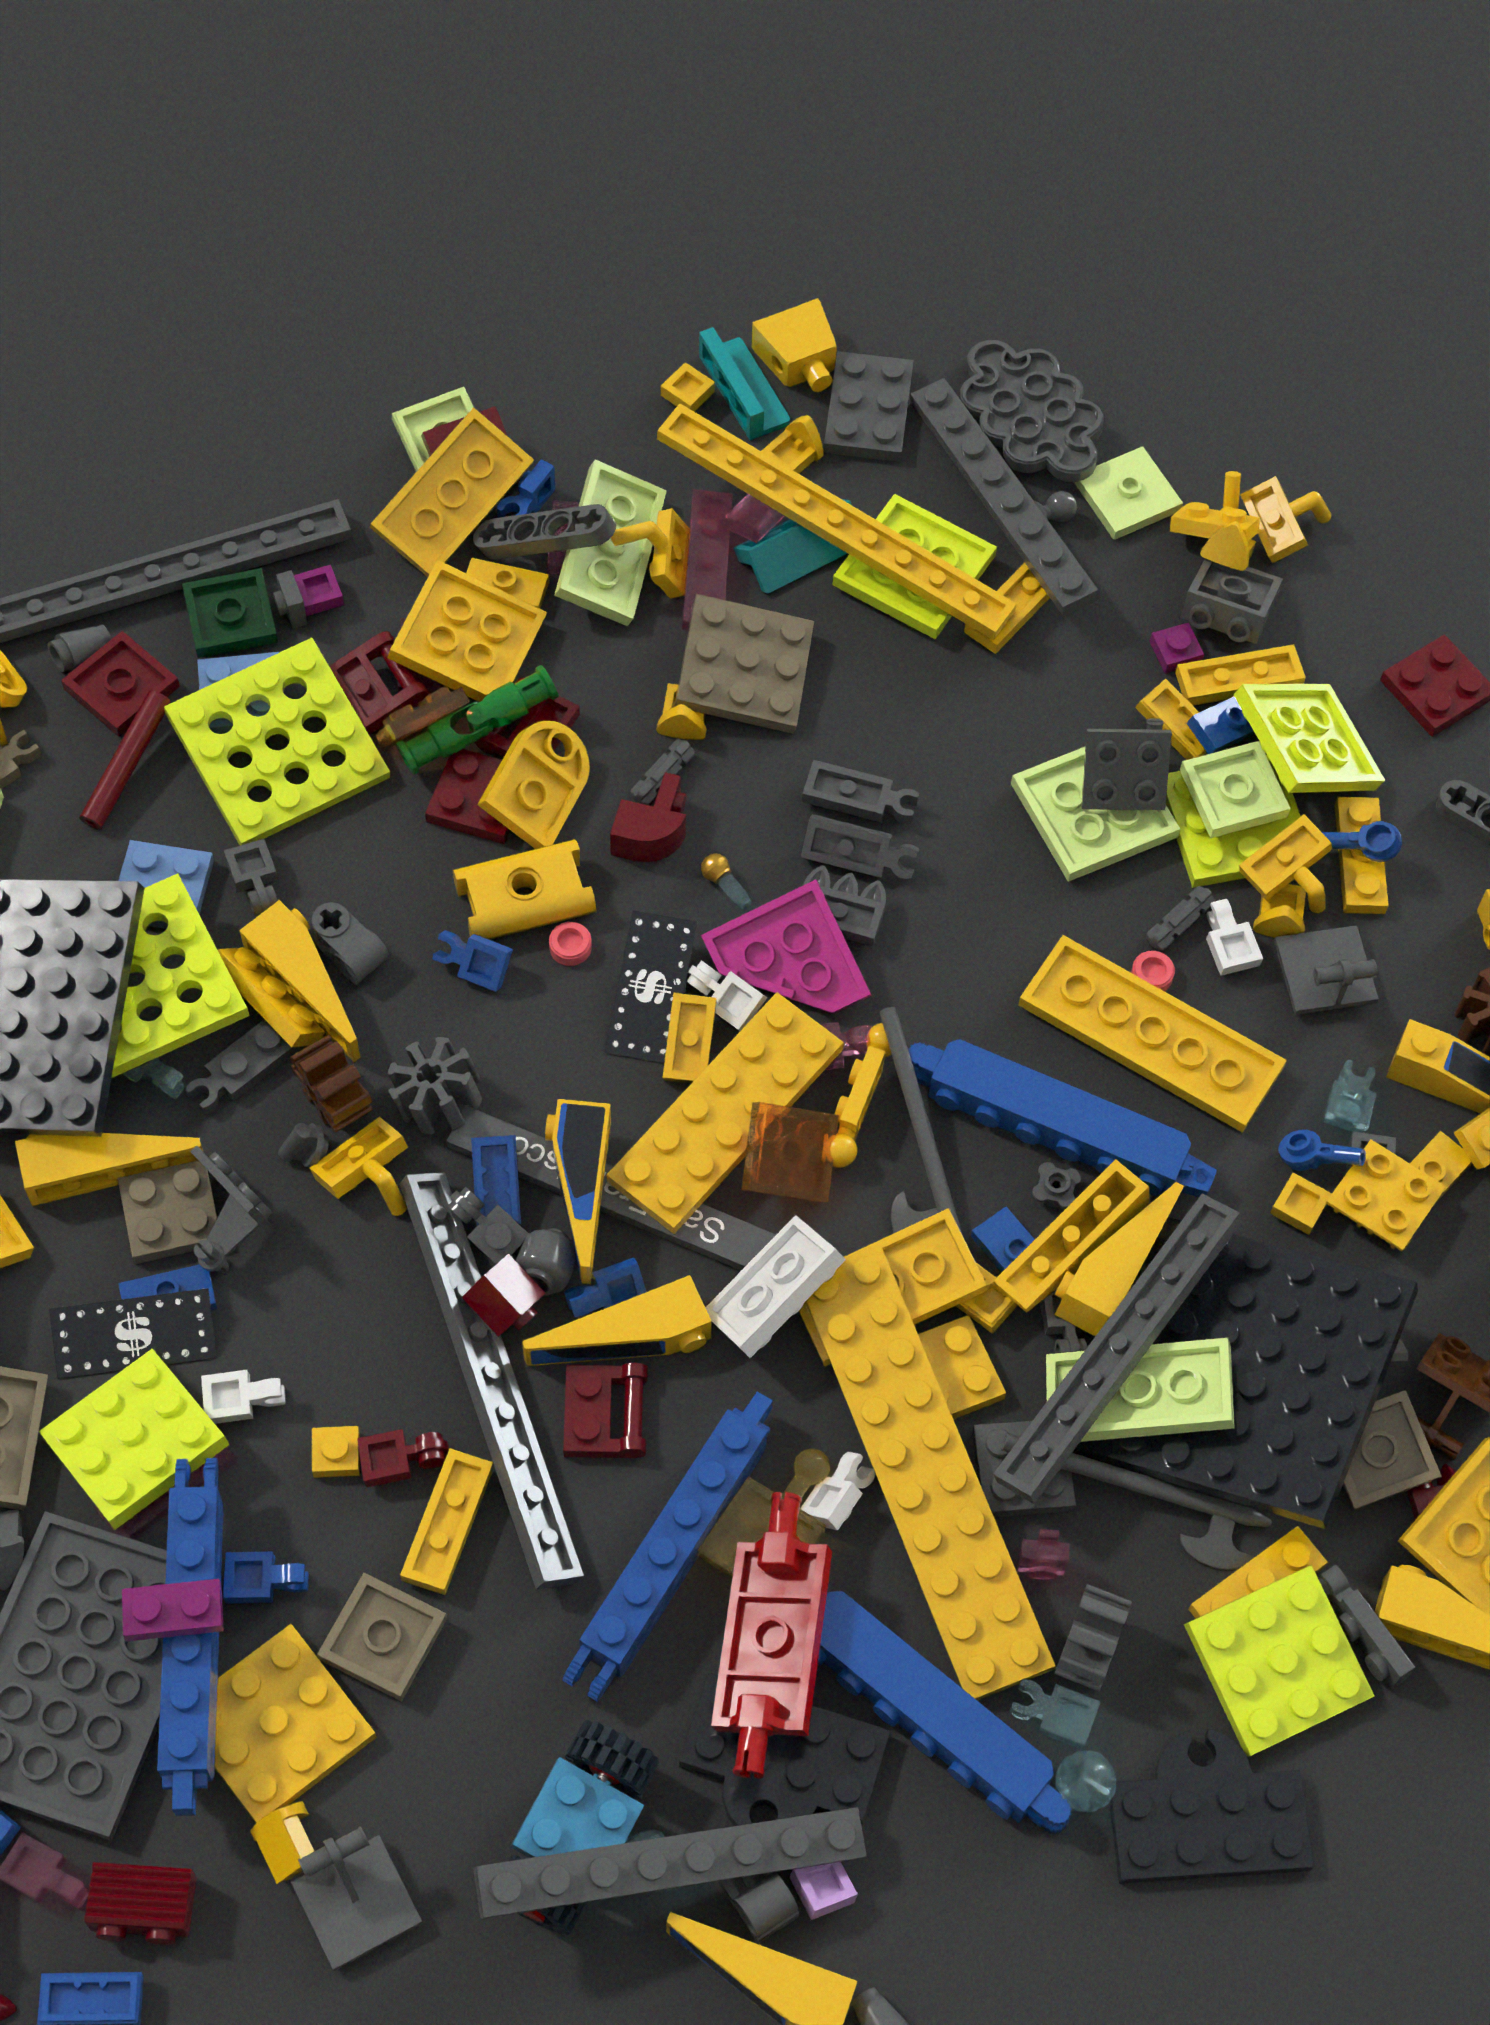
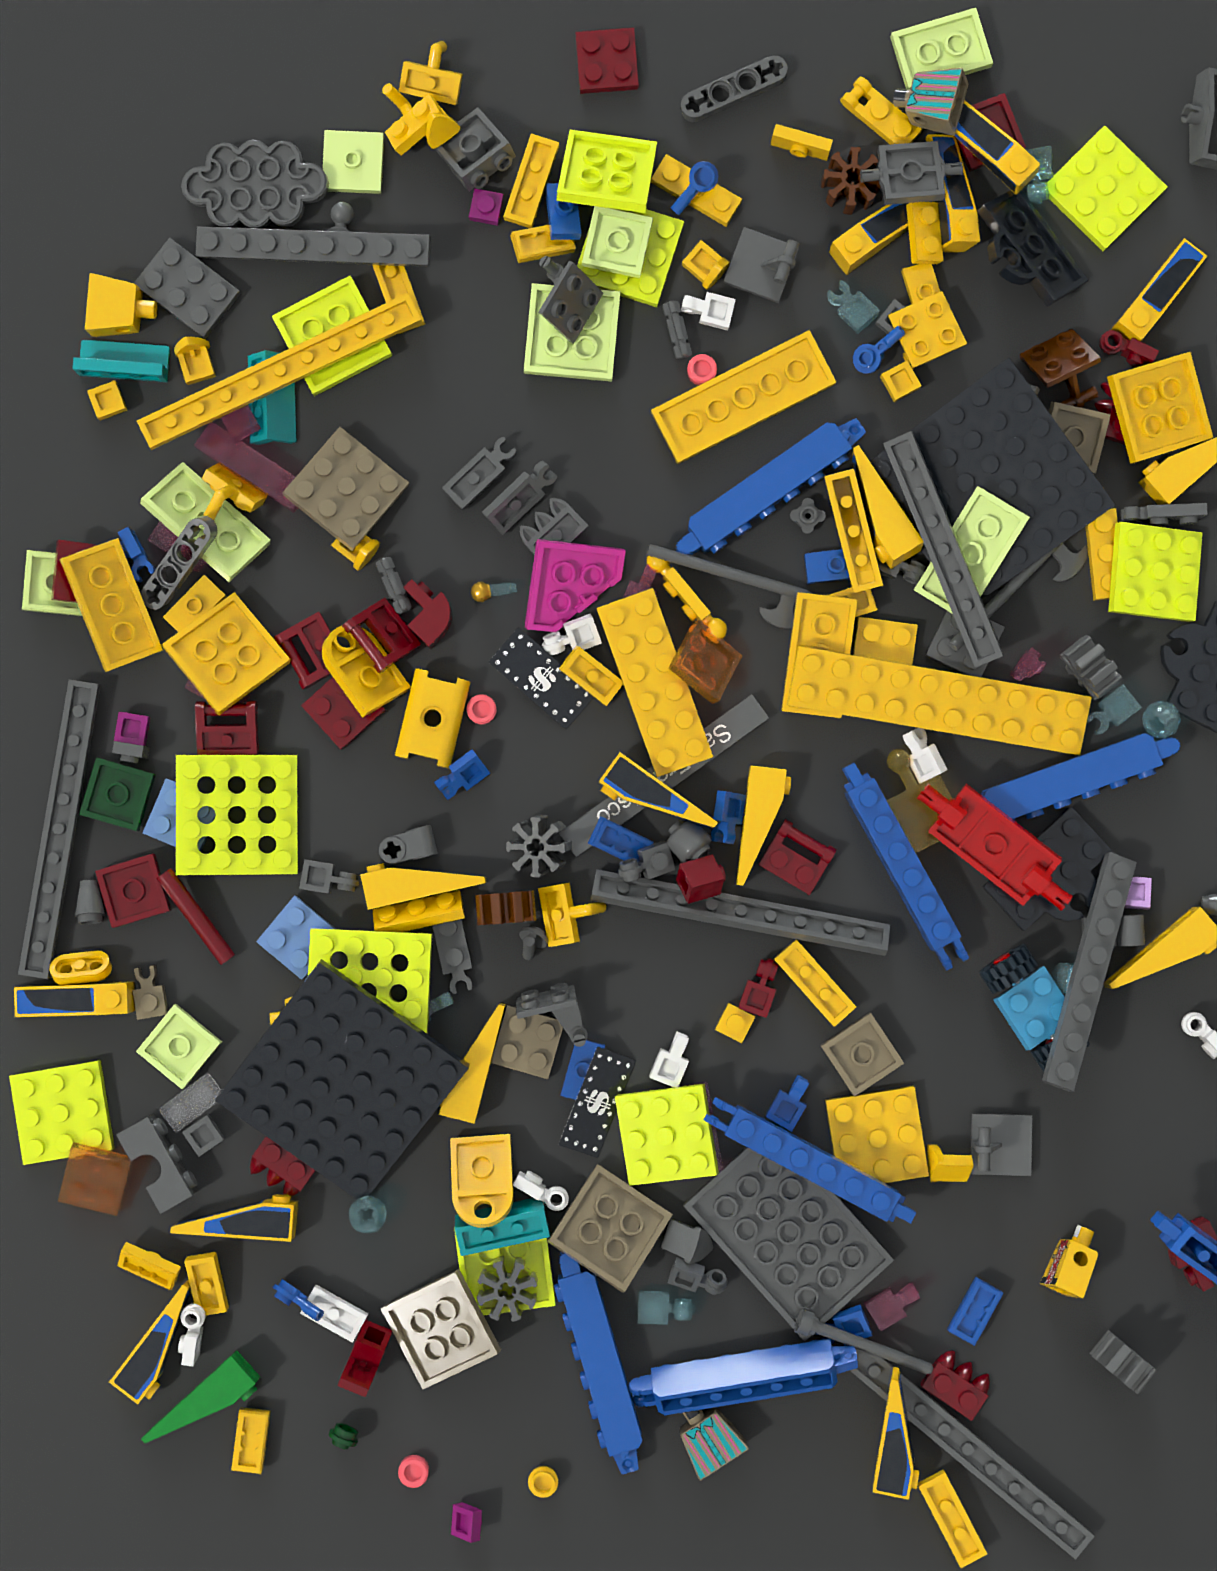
camera: 55 degrees left, 25 degrees up
(140, 1901) = (938, 1260): dark red brick -> none
(172, 1610) = (804, 1170): magenta plate -> none
(407, 721) = (276, 716): clear orange plate -> none
(494, 711) = (297, 660): green piece -> none
(603, 790) = (389, 631): none -> dark red plate
(774, 1286) = (787, 722): white plate -> none
(1288, 859) = (683, 241): yellow plate -> none

